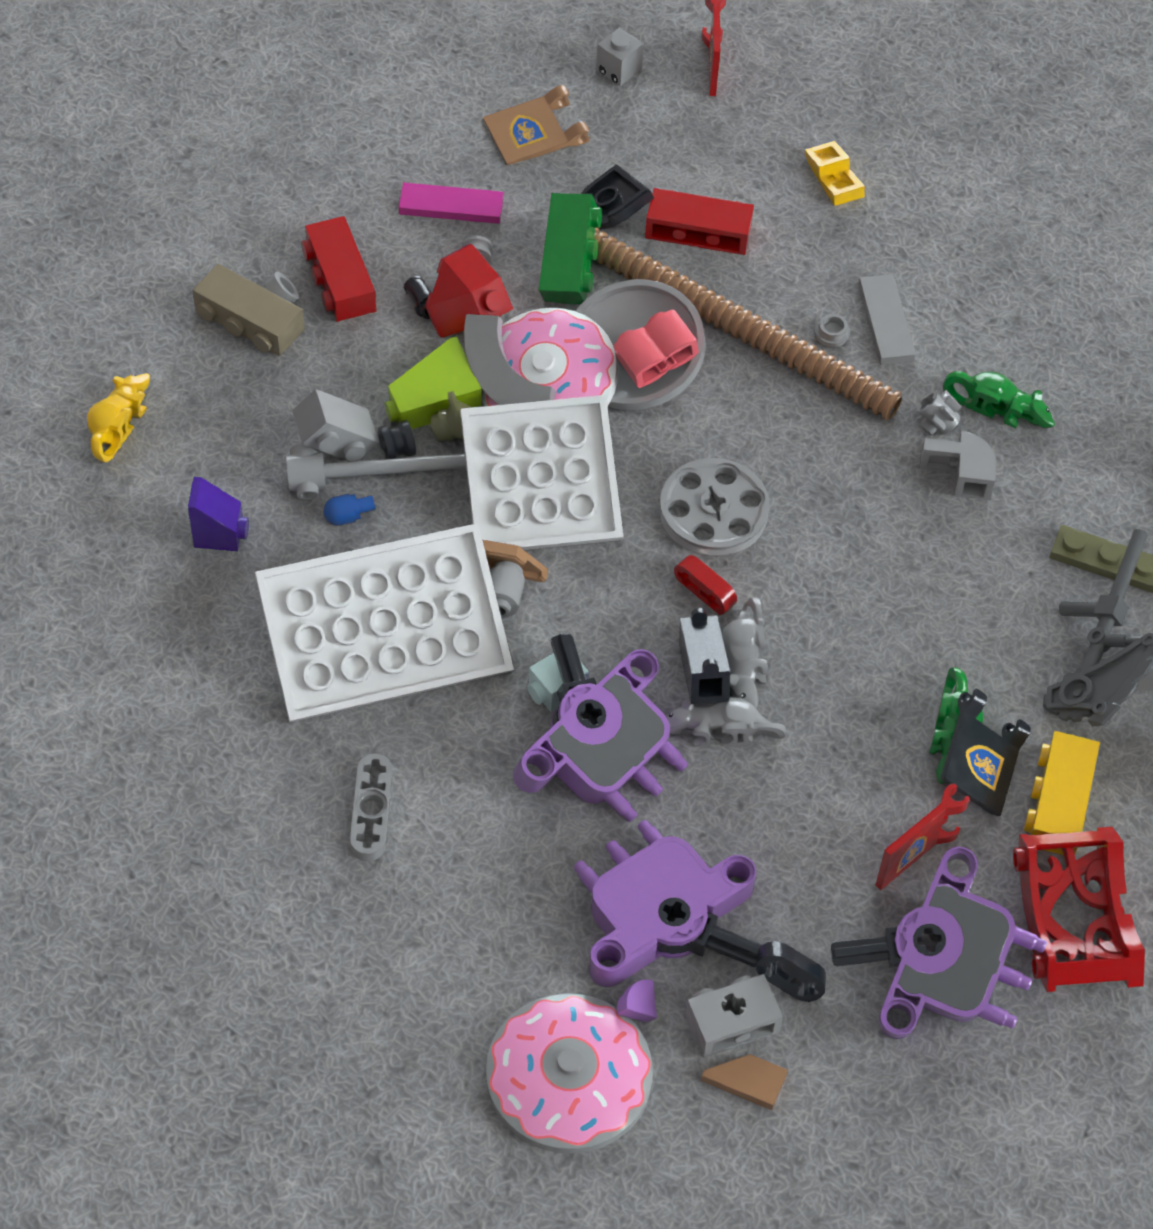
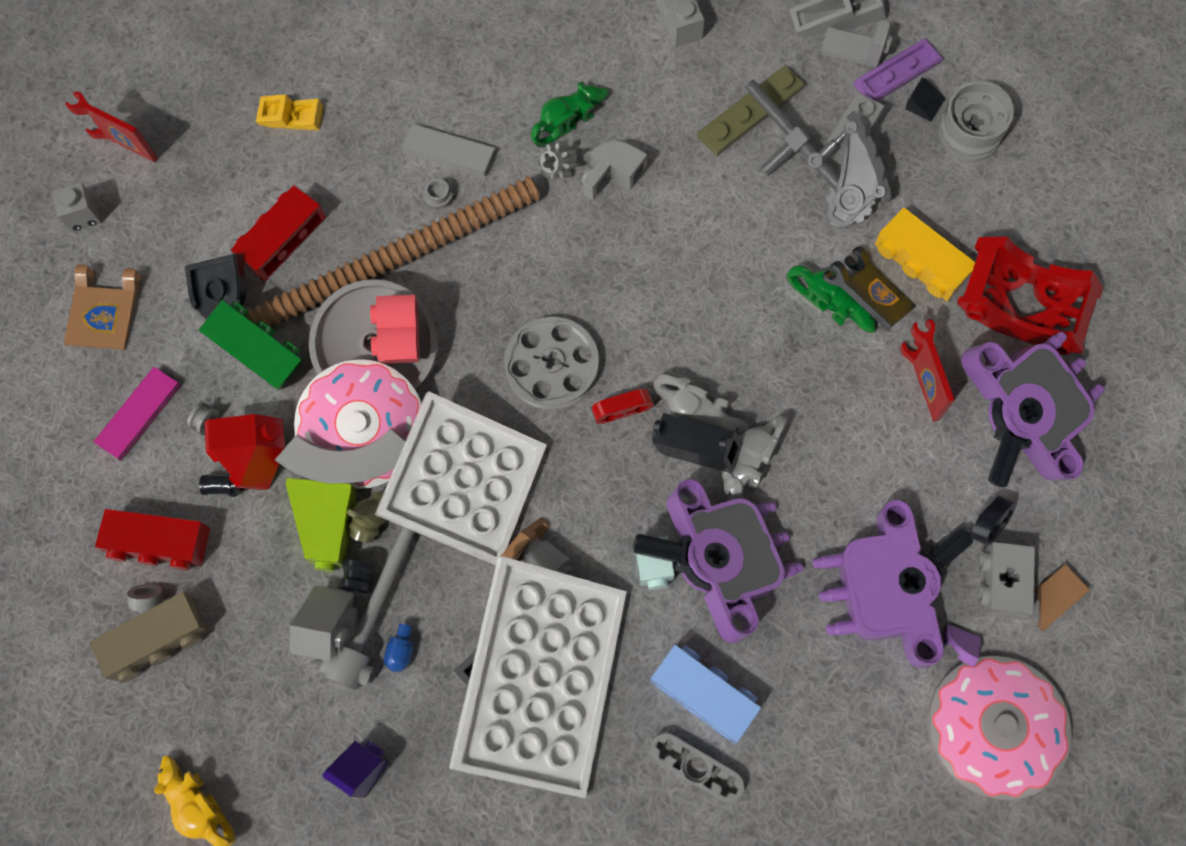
camera: 55 degrees left, 15 degrees up
(449, 780) = (706, 693): none -> light blue brick

